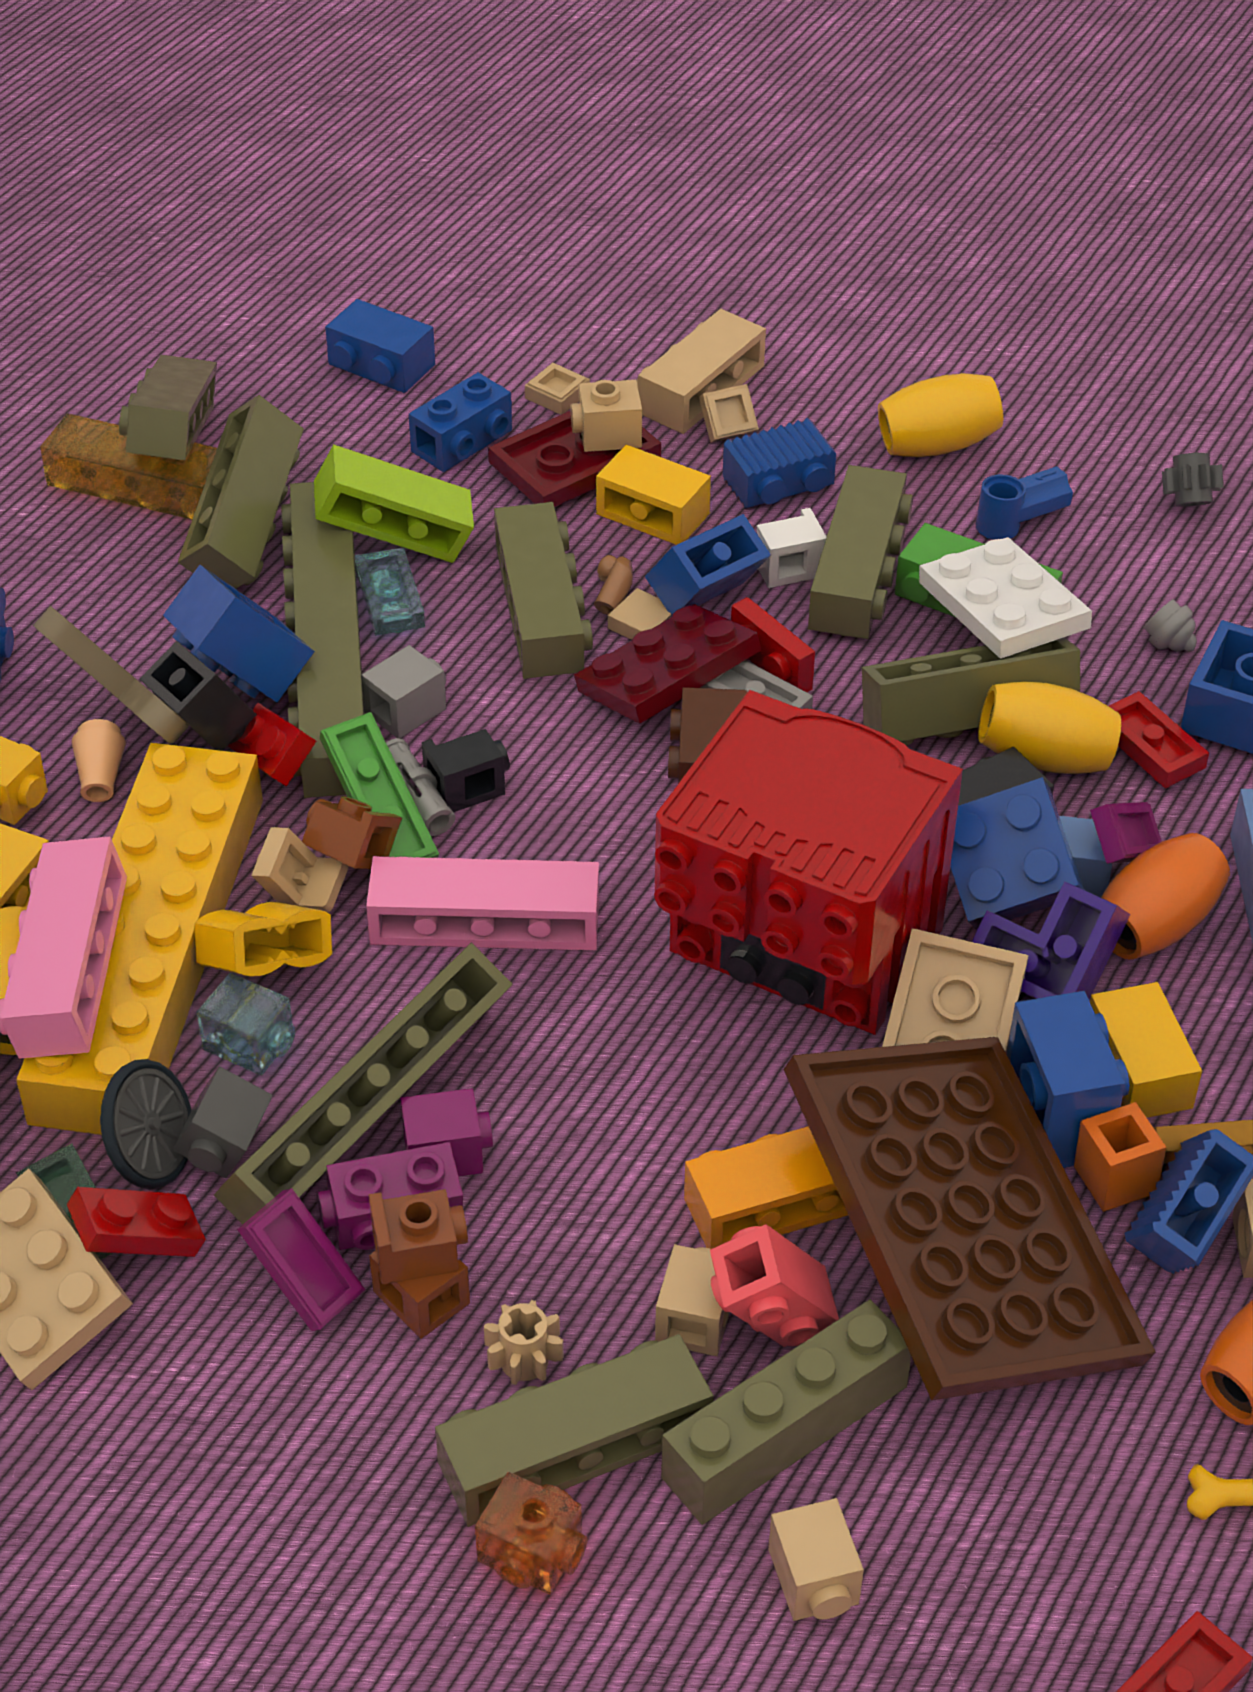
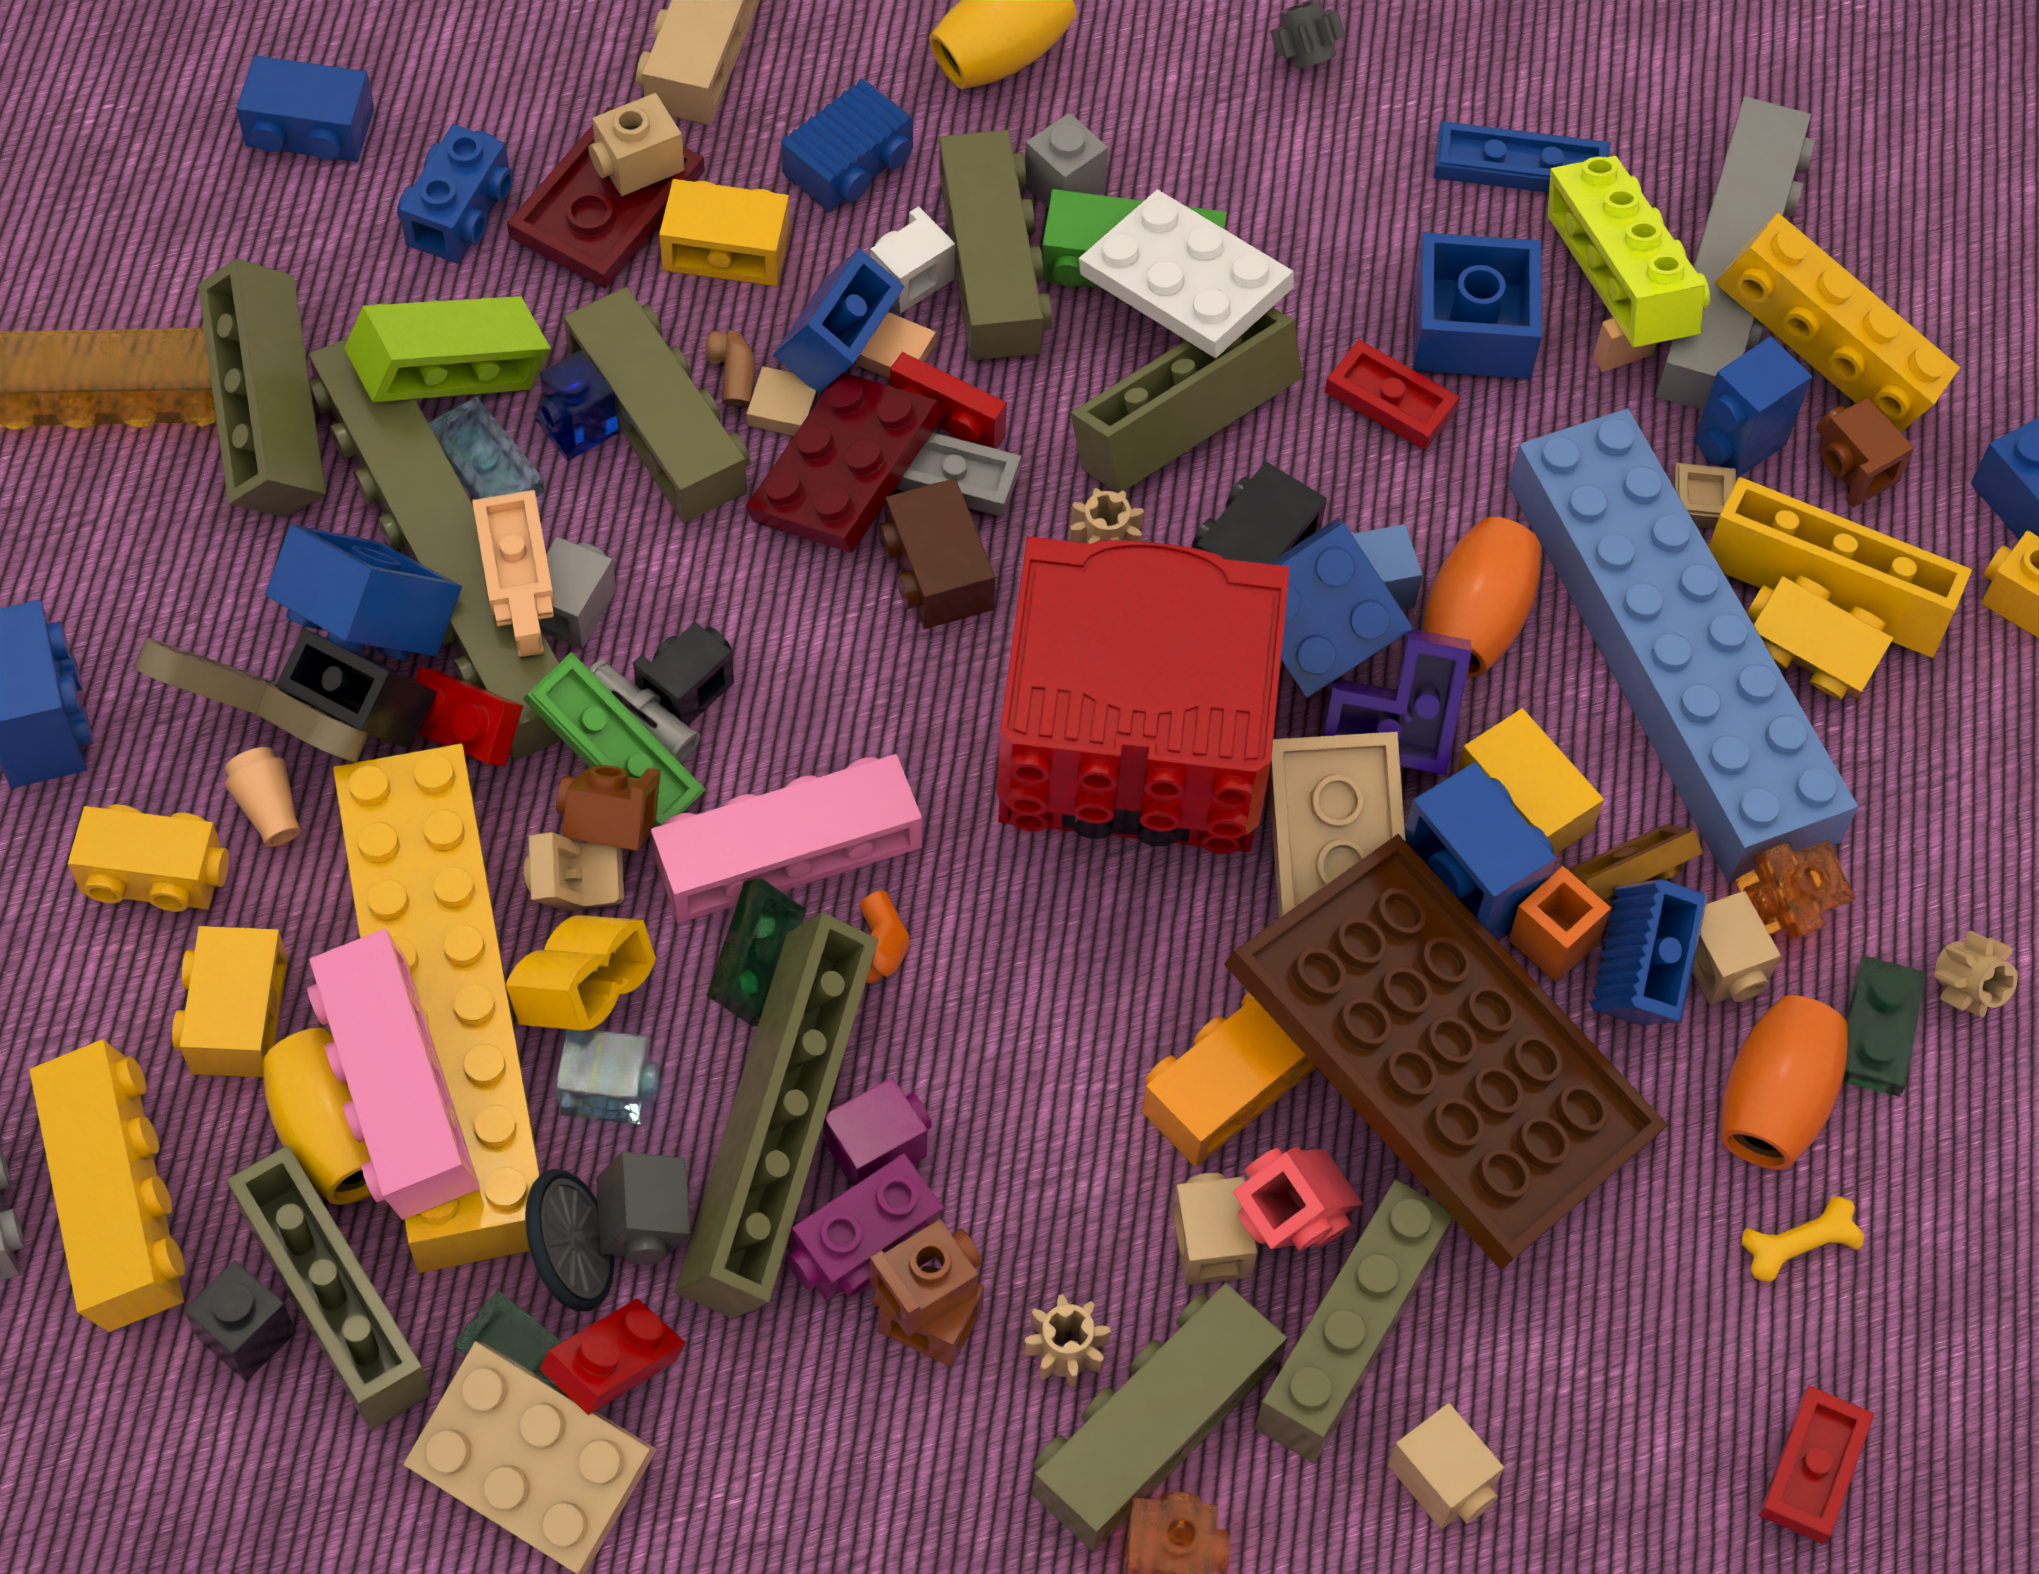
camera: 25 degrees left, 15 degrees up
(169, 407) = (114, 290): olive brick -> none
(301, 1259) = (806, 1336): magenta tile -> none
(362, 649) = (515, 565): none -> light nougat hinge
(411, 969) = (753, 949): none -> clear green plate
(476, 573) = (576, 406): none -> clear blue brick
(524, 1004) = (891, 932): none -> orange arm
(555, 388) = (539, 105): tan tile -> none
(728, 413) = (759, 88): tan tile -> none
(758, 592) = (892, 338): none -> light nougat tile
(948, 505) = (1065, 159): none -> light grey brick
(1009, 501) = (1136, 114): blue piece -> none
(1050, 726) = (1290, 421): yellow piece -> none
(1125, 830) = (1423, 532): magenta tile -> none
(1172, 628) = (1357, 239): light grey plate -> none

